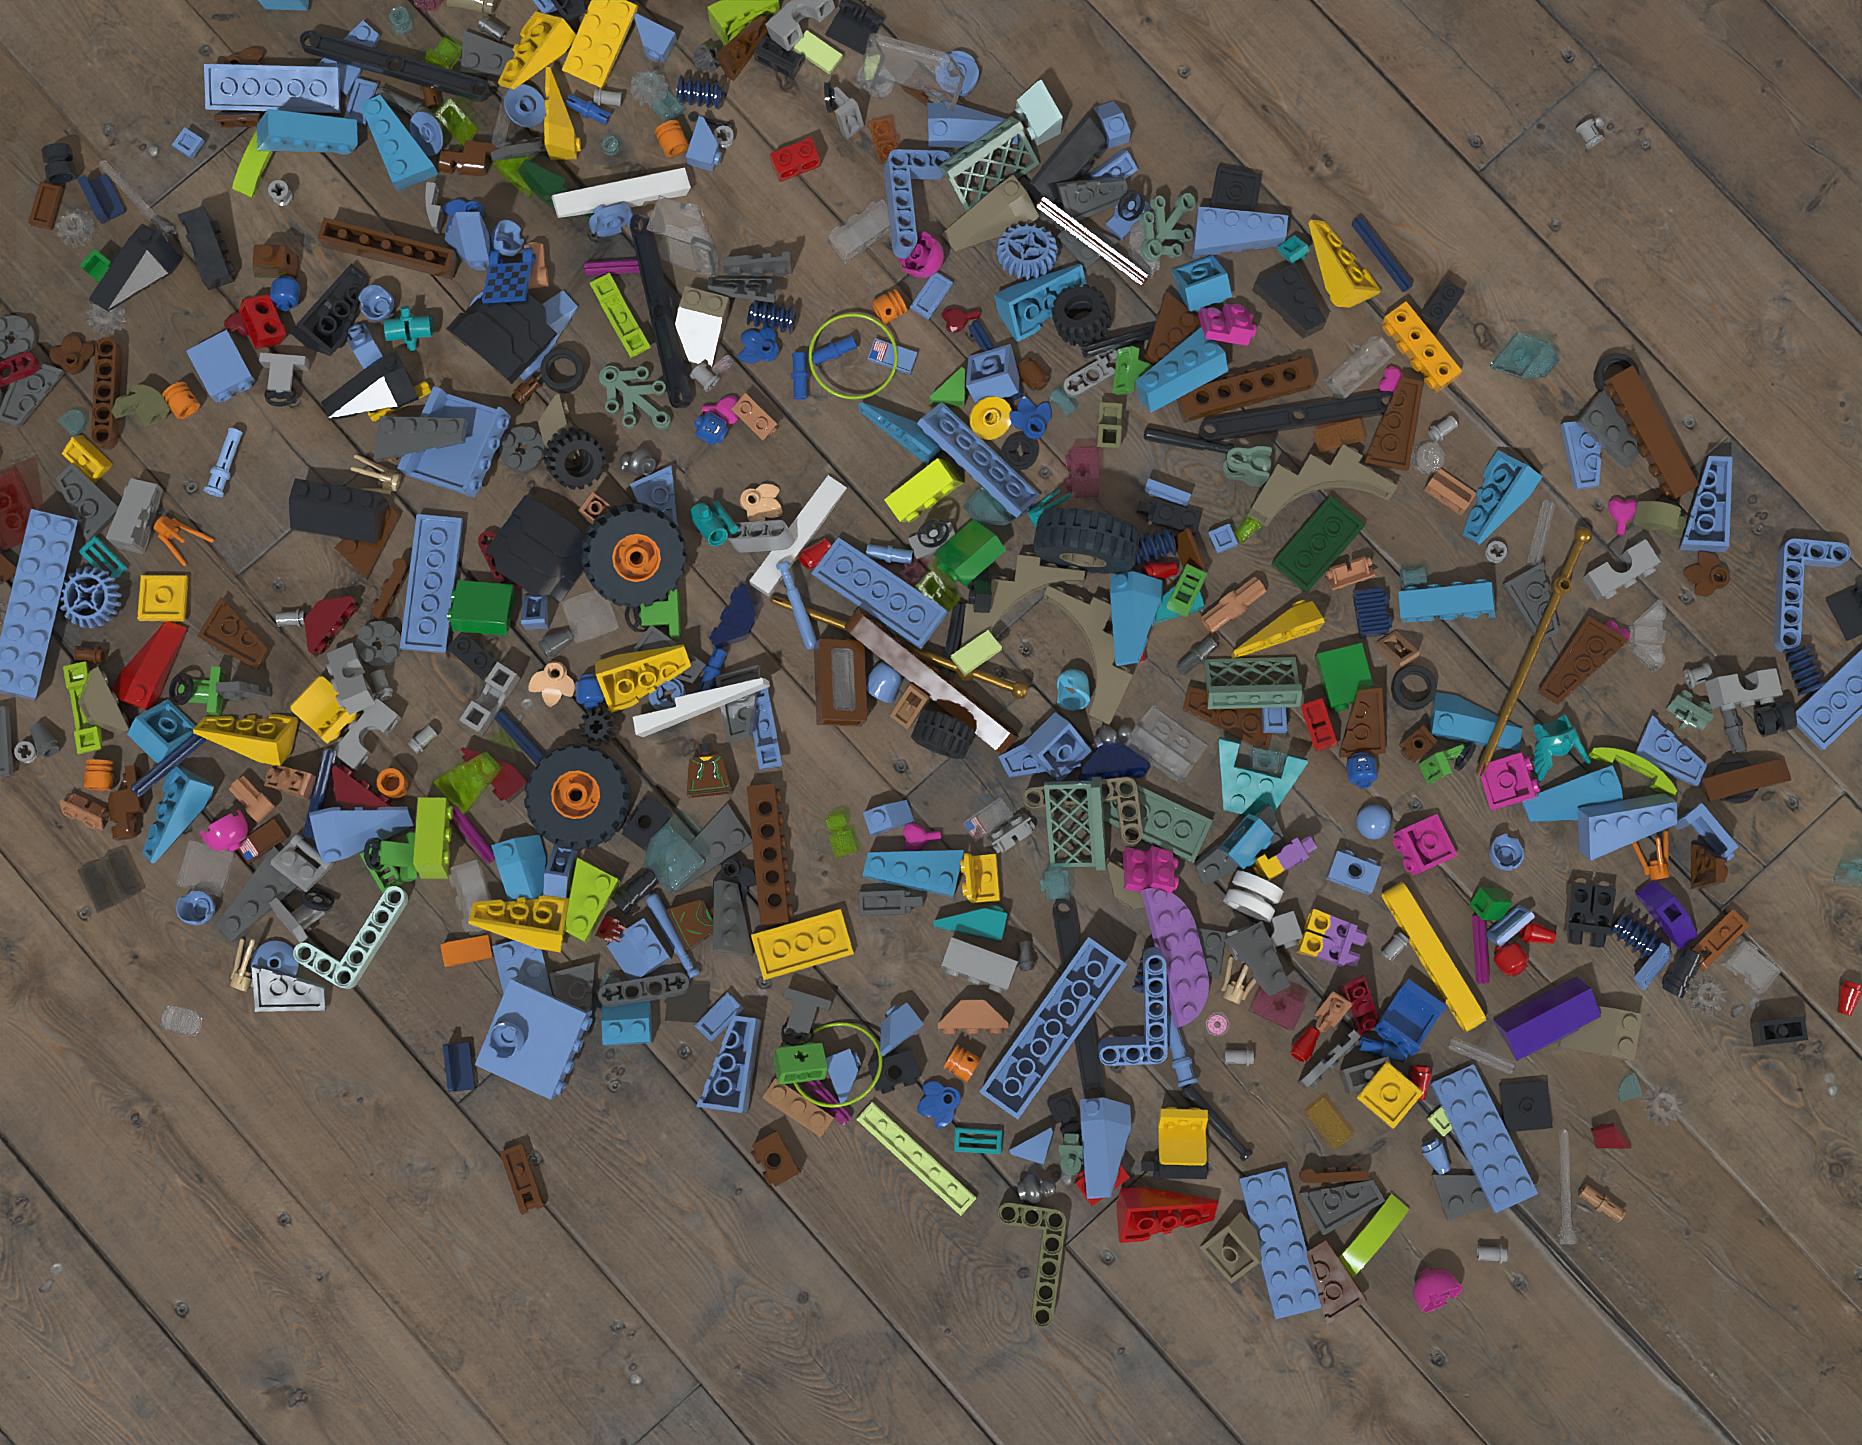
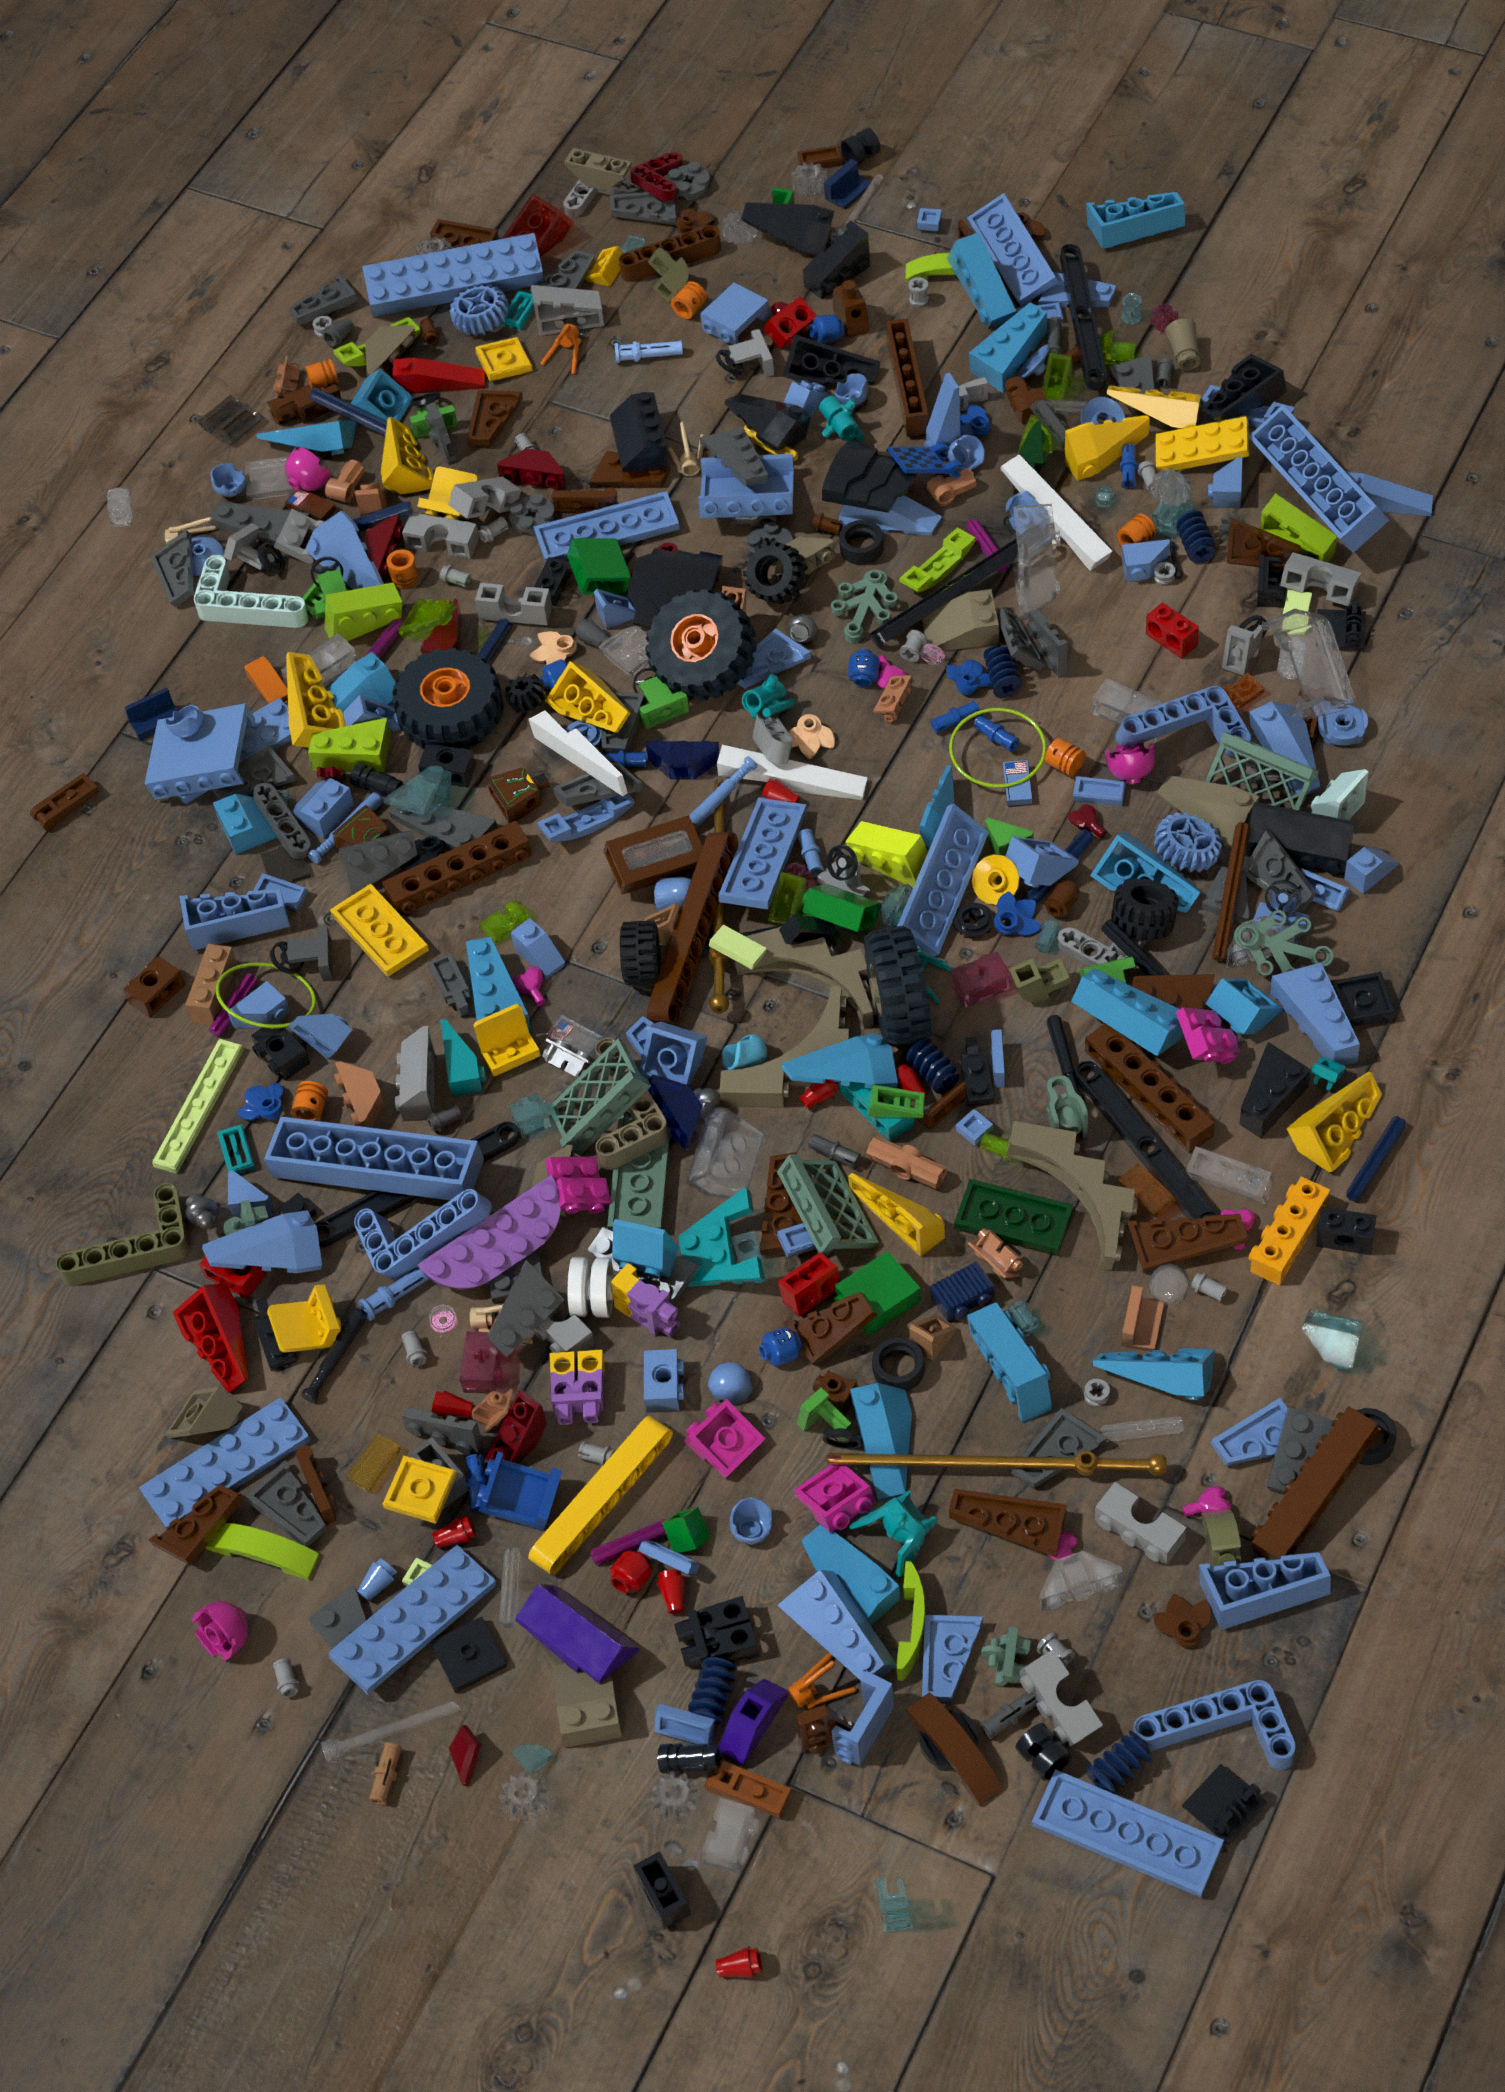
camera: 75 degrees right, 25 degrees down
(800, 1063) = (253, 959): bright green brick -> none

